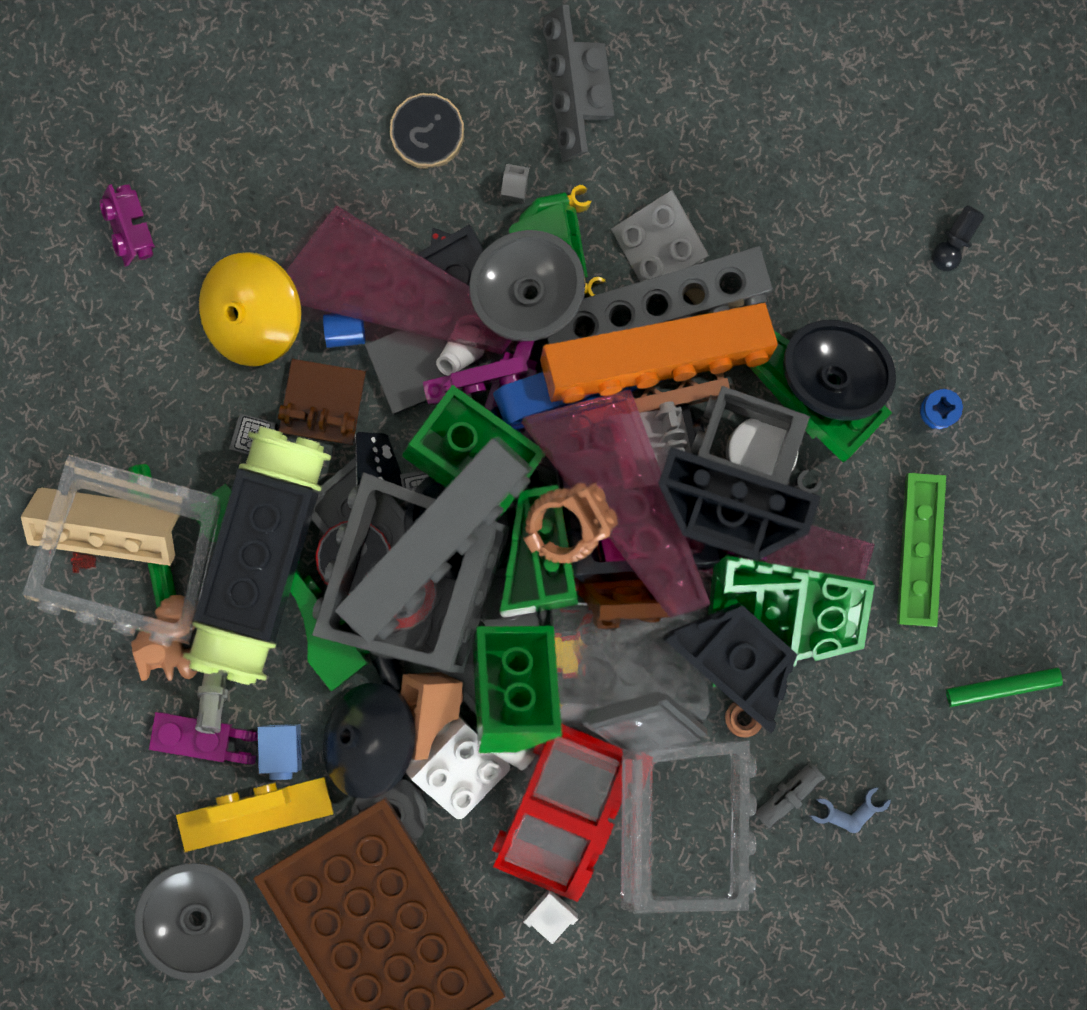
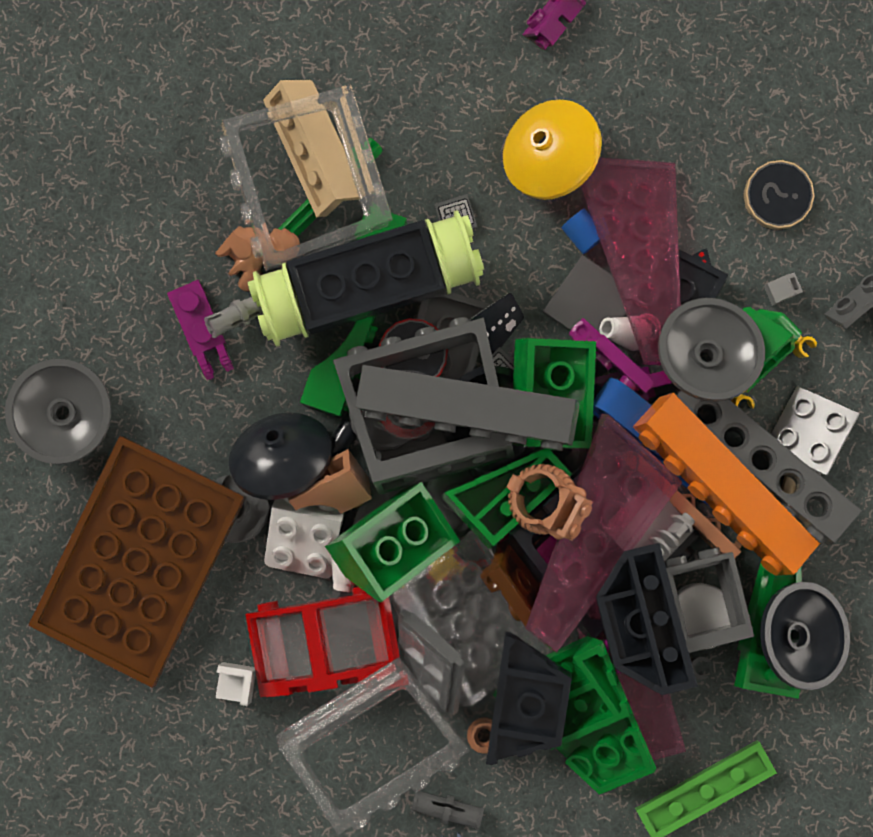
camera: 60 degrees right, 0 degrees up
(82, 561) = (276, 149): clear red piece -> none
(254, 814) = (176, 411): yellow bracket -> none
(279, 750) = (229, 392): medium blue brick -> none
(322, 402) = (516, 251): reddish brown hinge -> none
(933, 410) = (821, 729): blue wheel -> none

